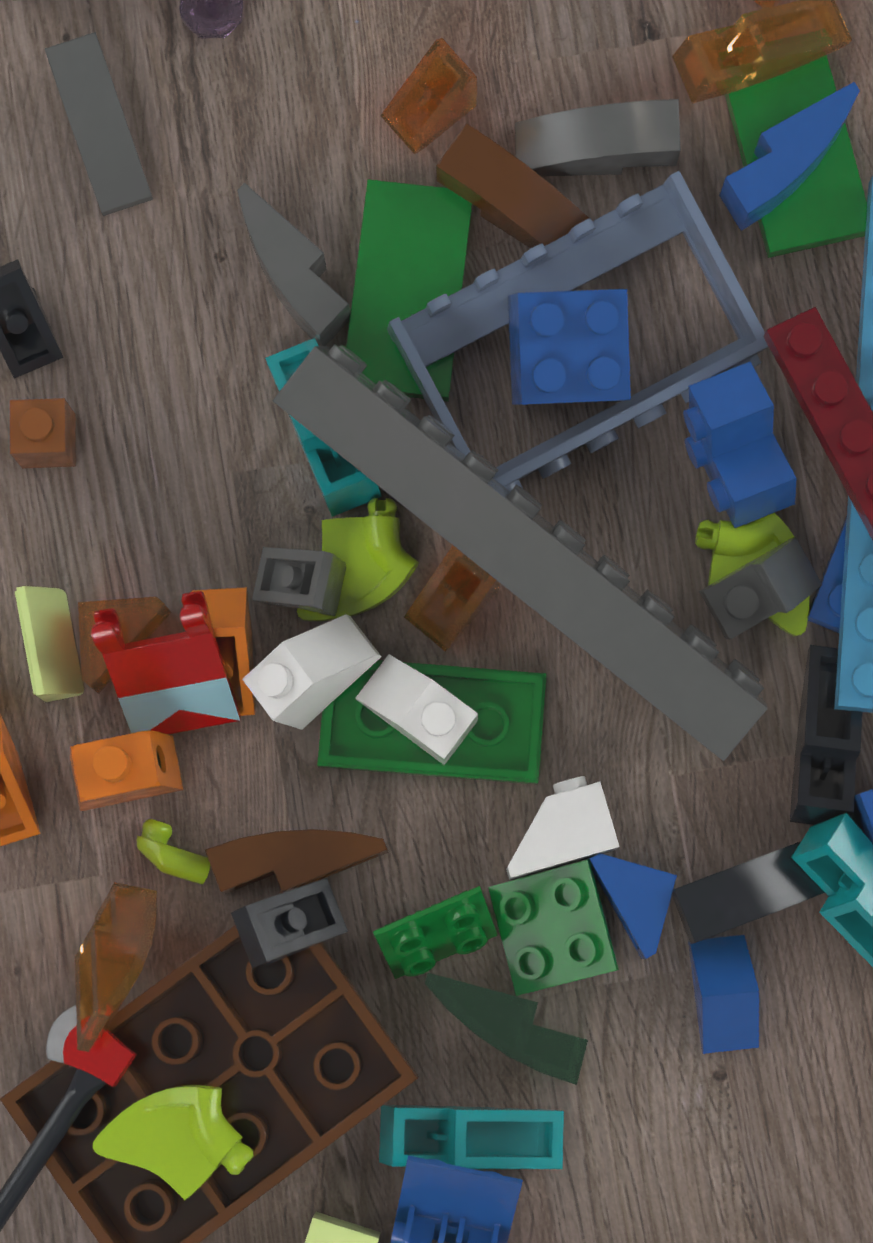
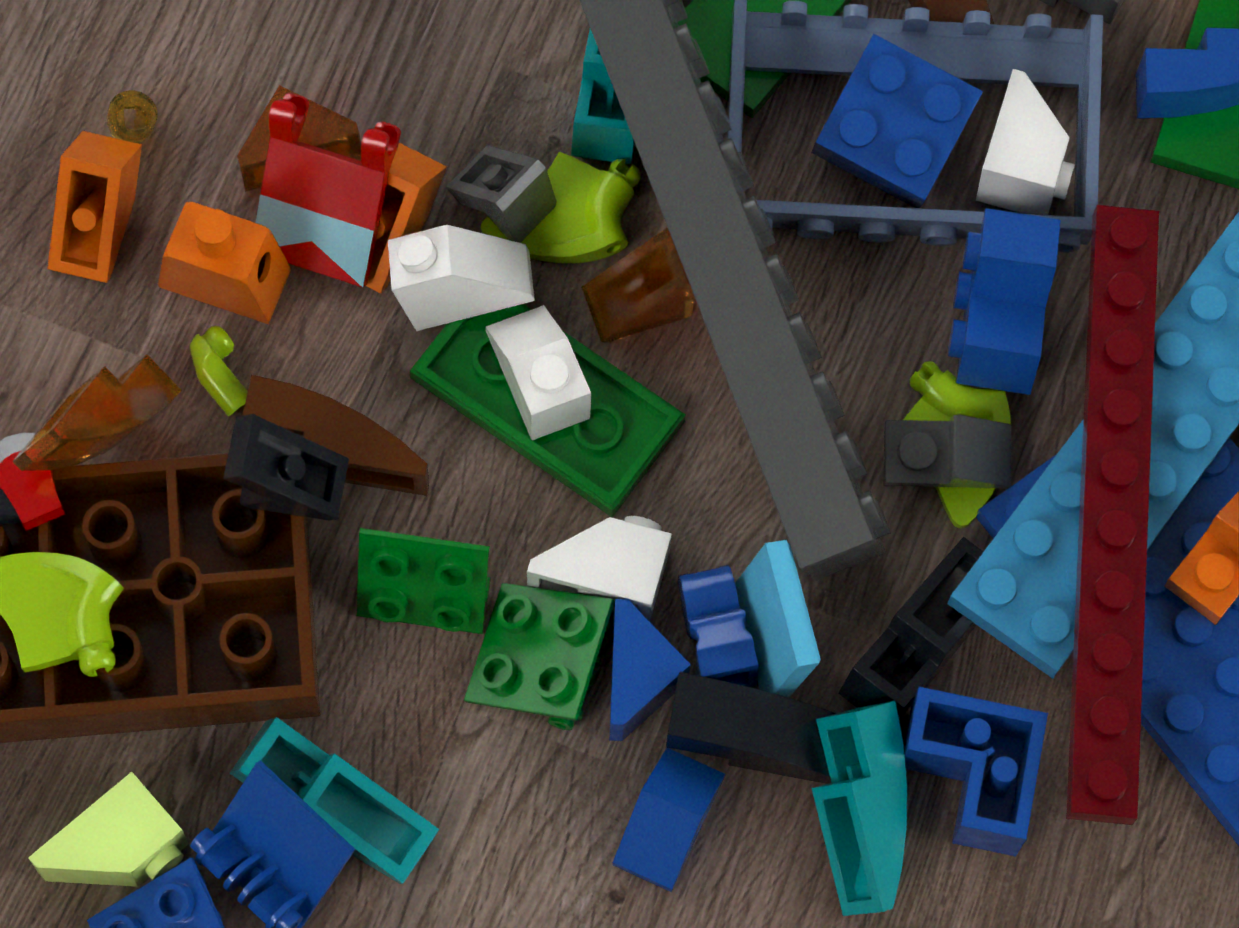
camera: 25 degrees right, 10 degrees down
(49, 642) = (228, 113): yellowish green slope -> none
(508, 1026) = (440, 719): clear green slope -> none
(674, 828) = (718, 624): none -> blue leg
(677, 311) = (1025, 153): none -> white slope
(722, 804) = (778, 619): none -> medium azure tile

